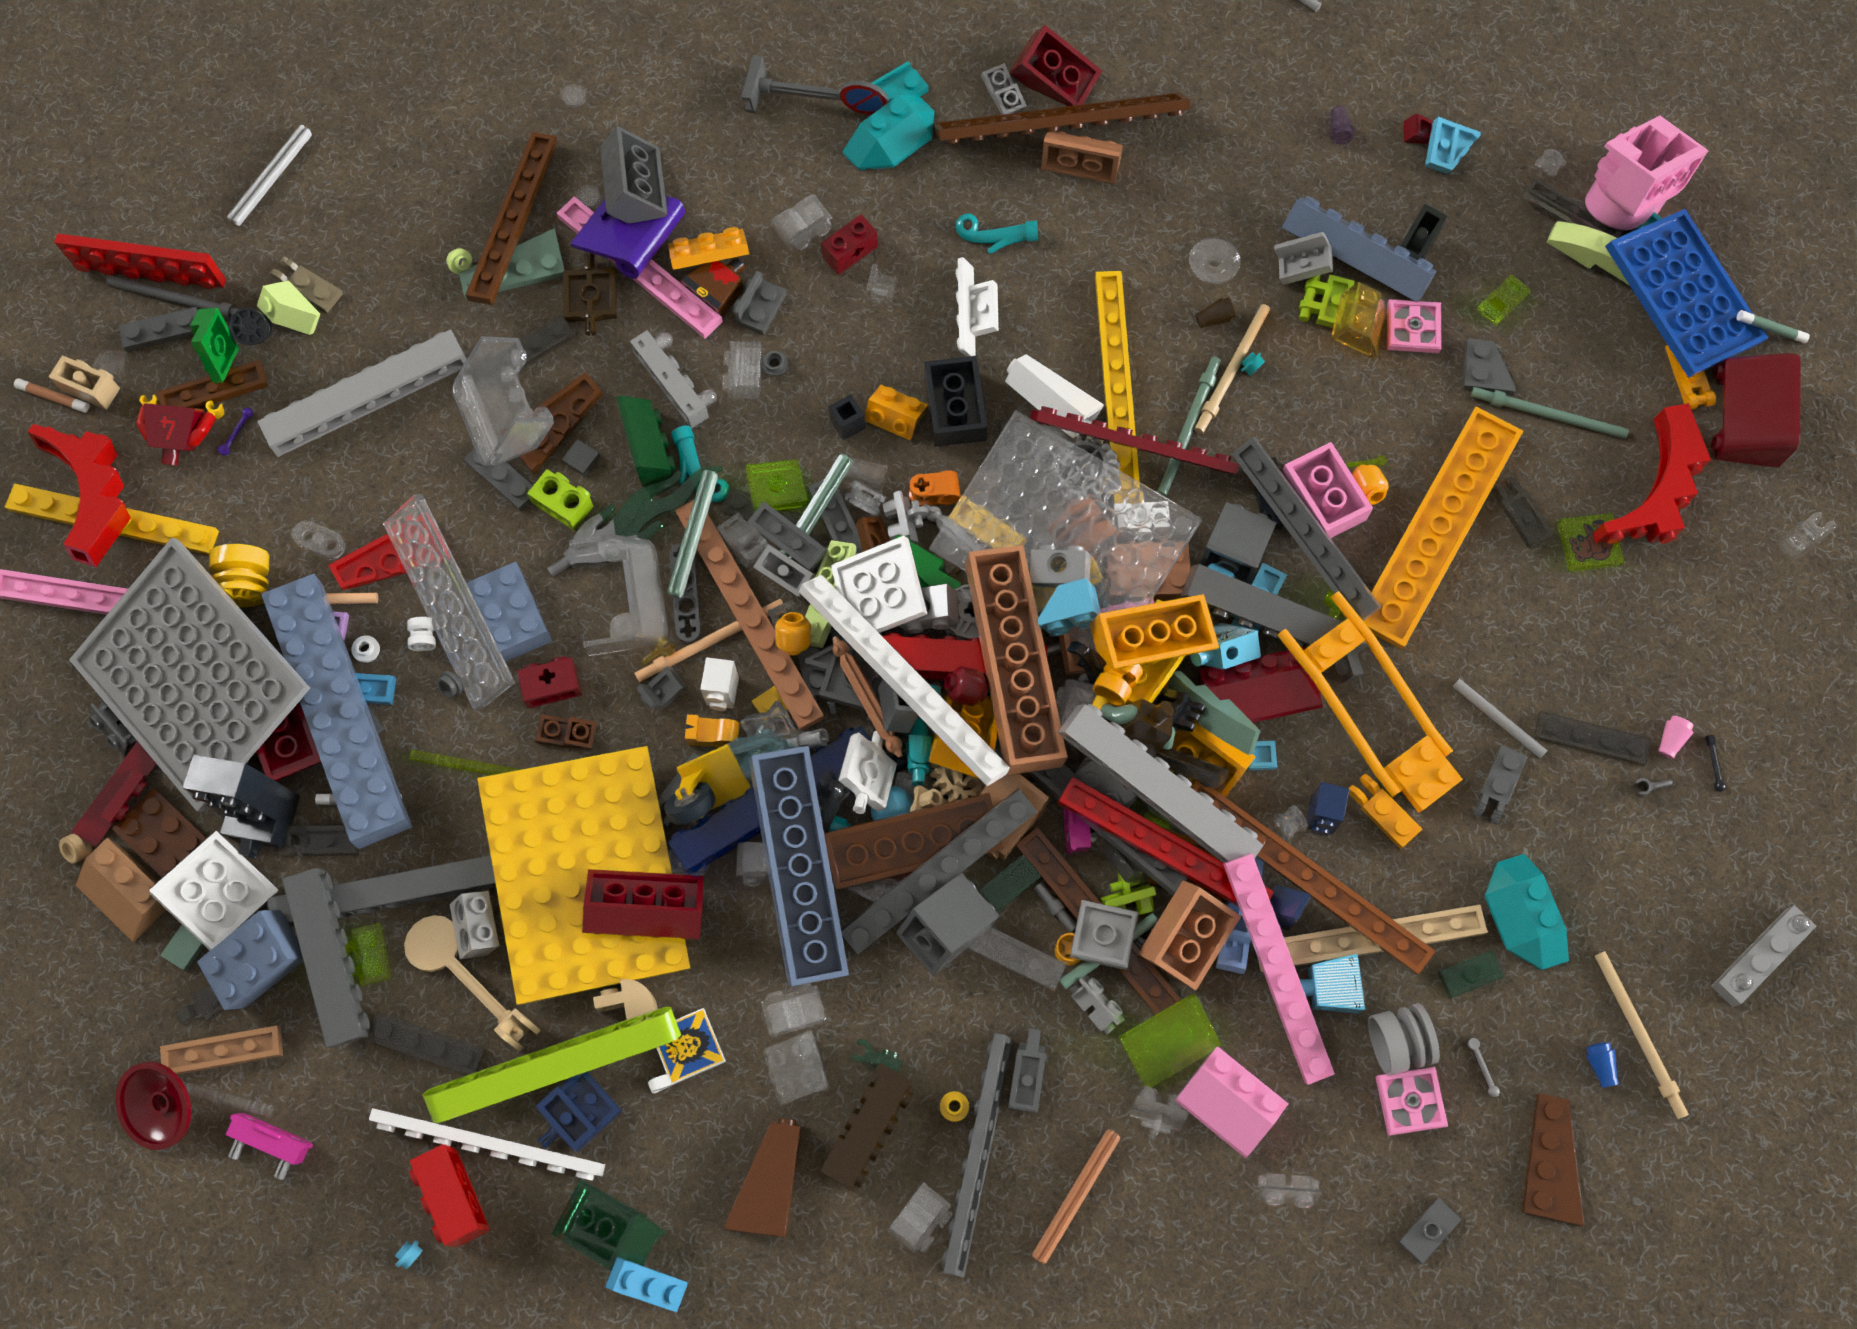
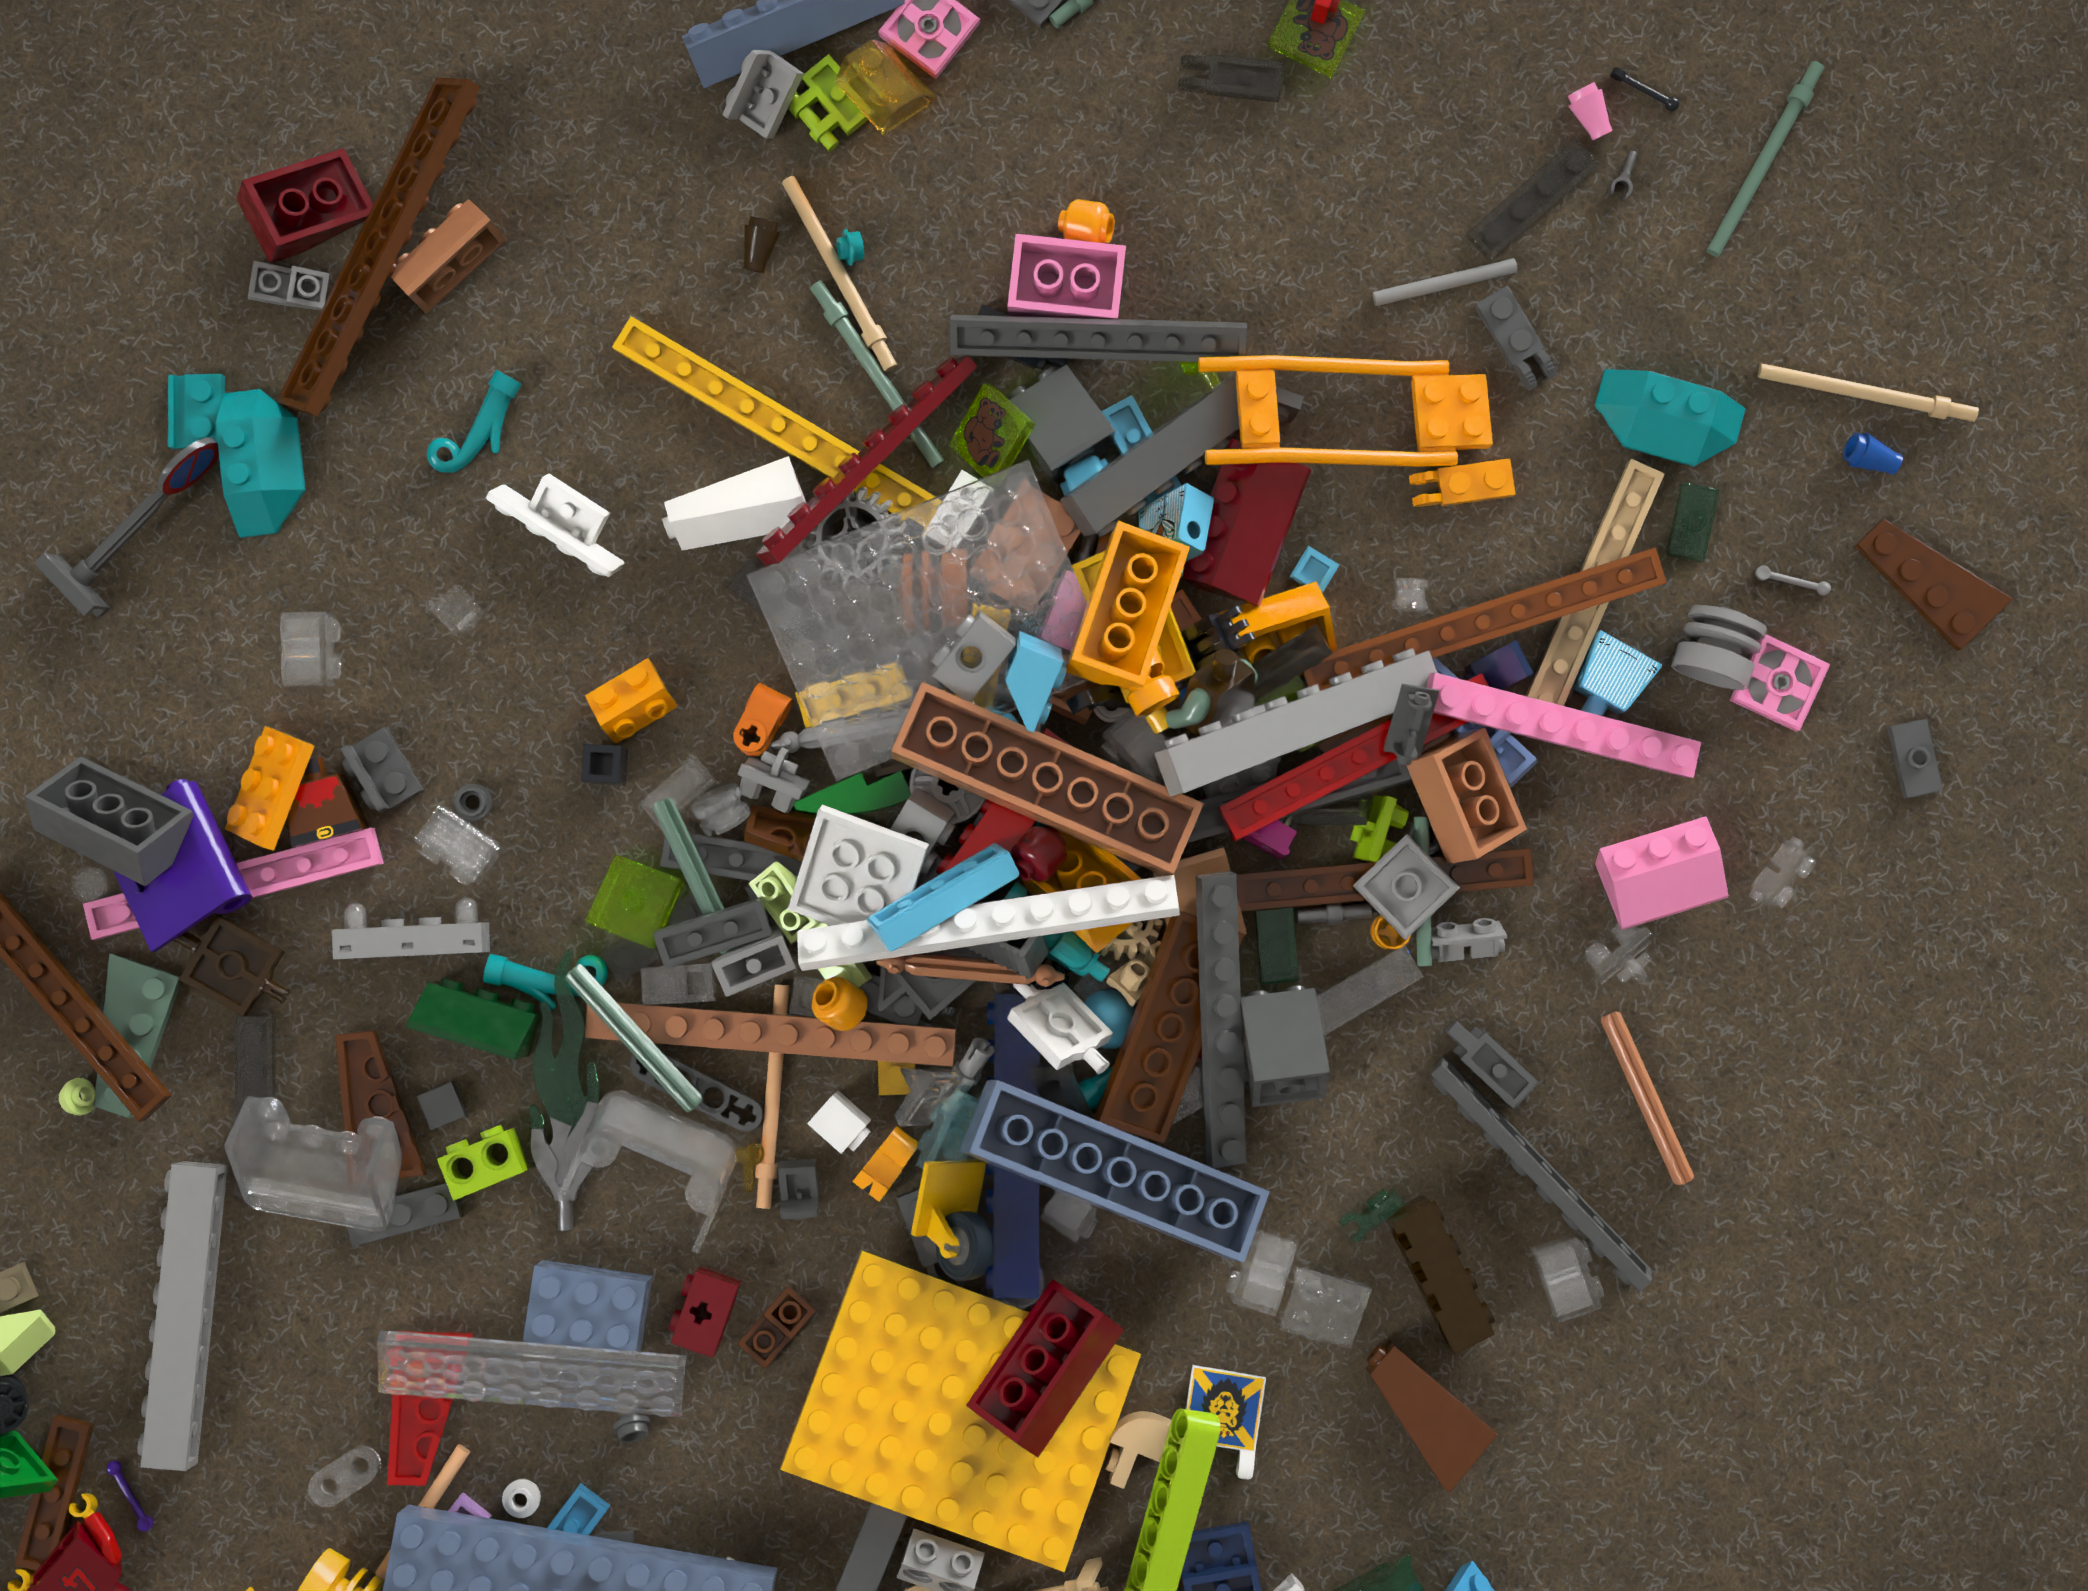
camera: 60 degrees left, 15 degrees up
(421, 634) = (554, 1428): white wheel -> none
(459, 763) = (739, 1463): clear neon green bar -> none
(849, 244) = (377, 613): dark red brick -> none
(900, 642) = (943, 896): none -> medium azure slope
(947, 1113) = (1462, 1162): yellow plate -> none
(955, 401) = (668, 625): black brick -> none
(1170, 1041) = (1557, 891): clear neon green tile -> none
(1207, 502) = (991, 432): none -> tile
(1210, 859) = (1410, 722): none -> dark grey hinge
(1216, 251) = (679, 184): clear dish -> none
(1220, 716) = (1258, 595): sand green slope -> none
(1327, 808) = (1427, 548): dark blue brick -> none
(1380, 461) = (1064, 187): clear neon green hinge -> none
(1440, 525) = (1186, 176): light orange plate -> none
(1763, 956) = (1875, 202): light grey piece -> none
(1788, 863) = (1798, 99): none -> sand green bar

